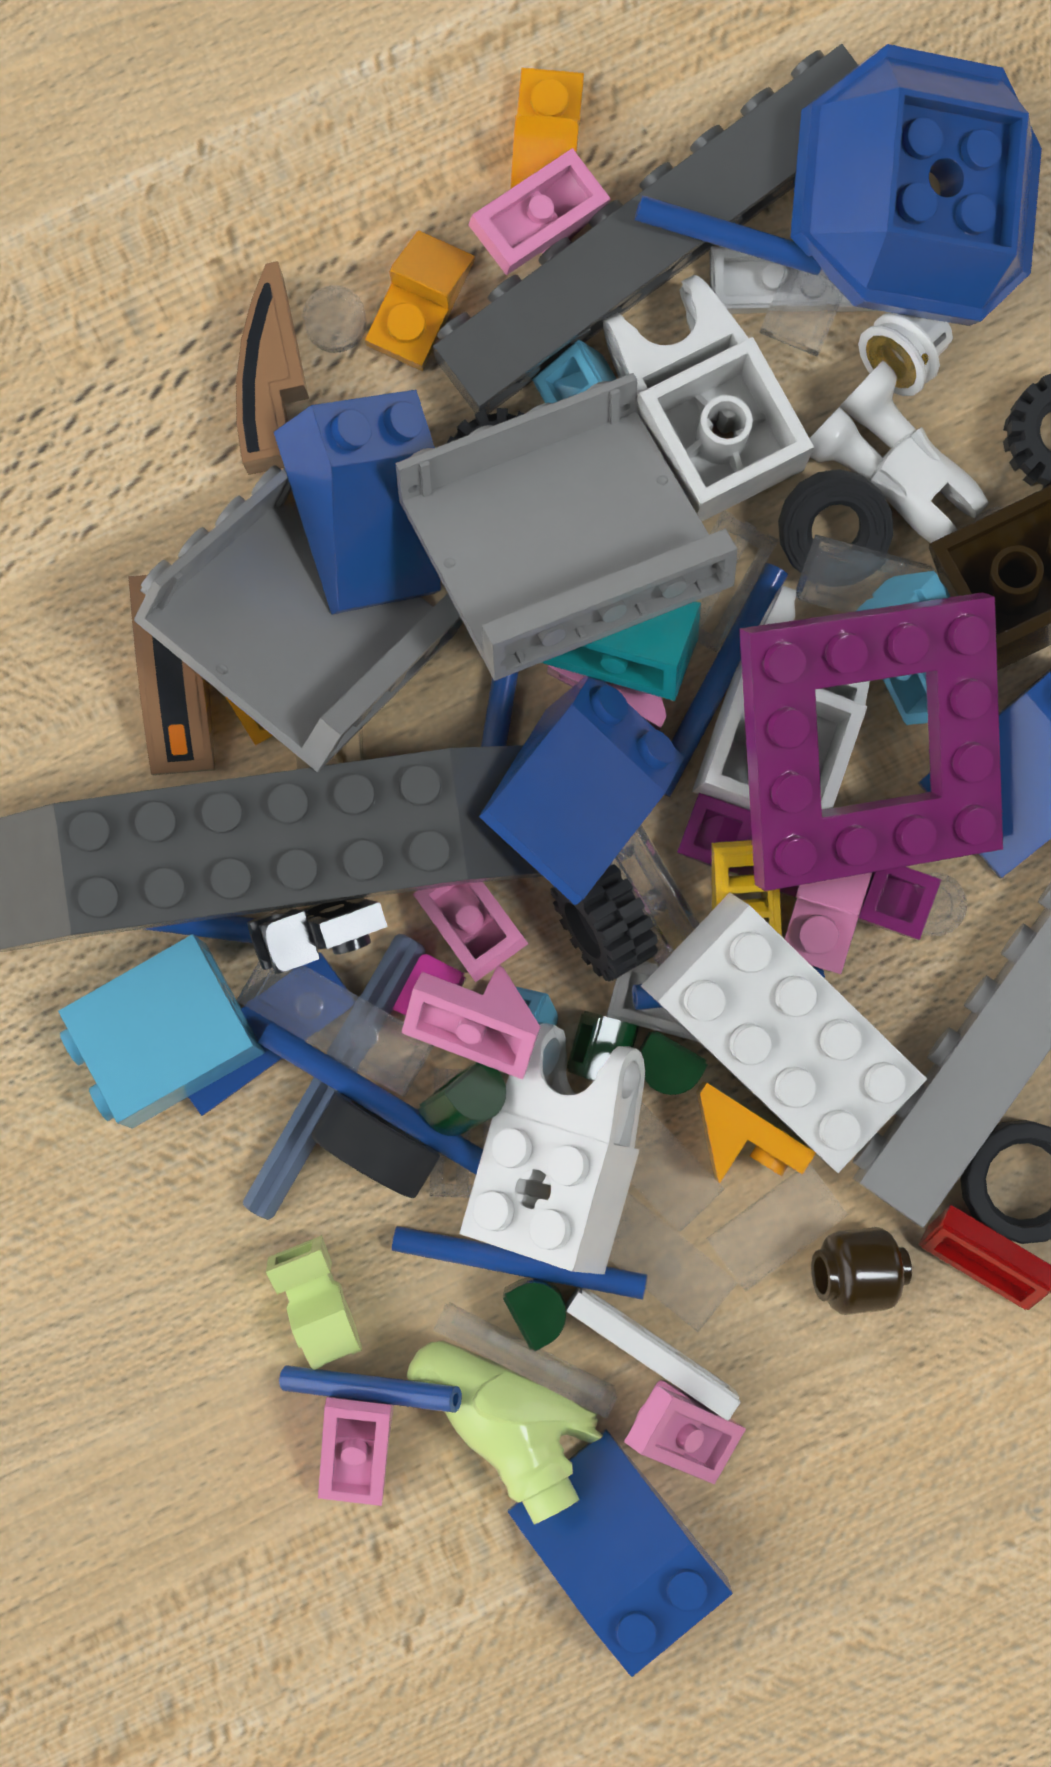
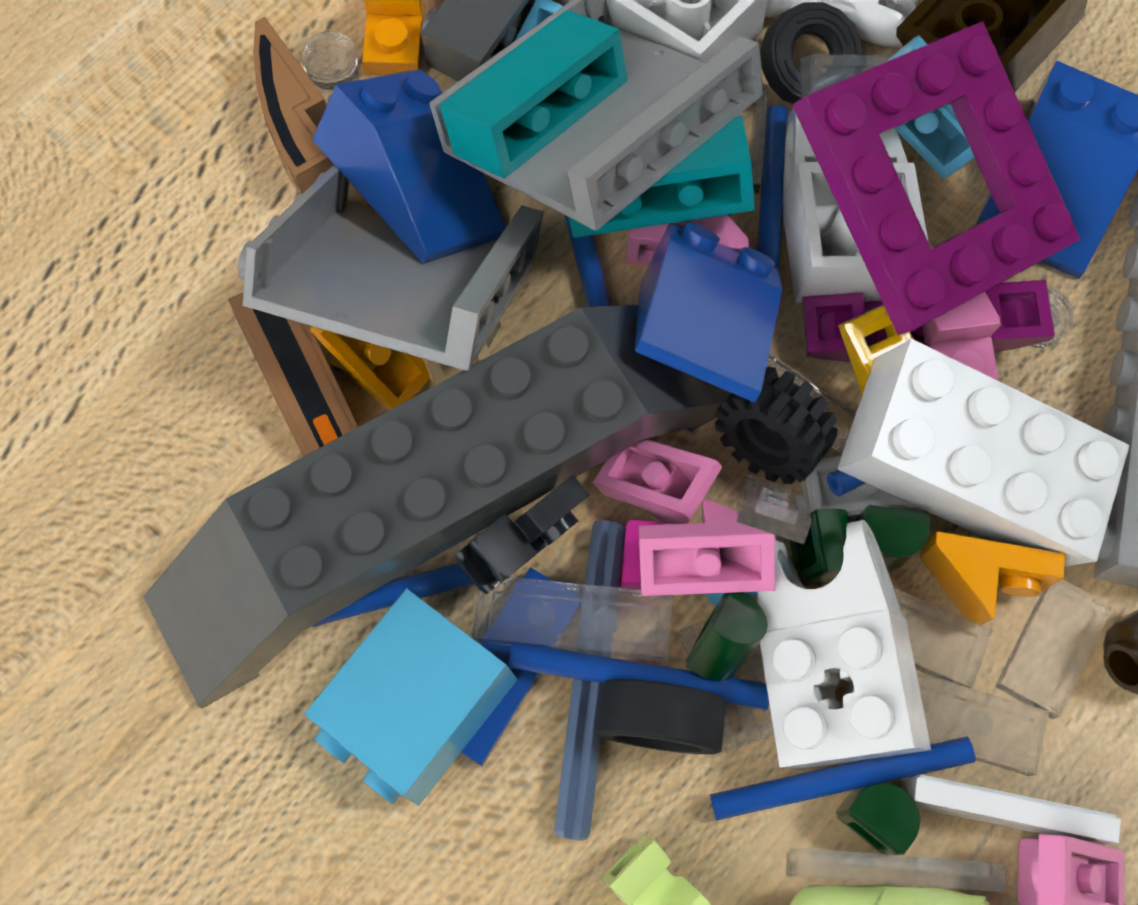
camera: 25 degrees left, 15 degrees down
(507, 490) = (534, 93): none -> teal brick
(554, 1003) = (773, 509): none -> clear tile

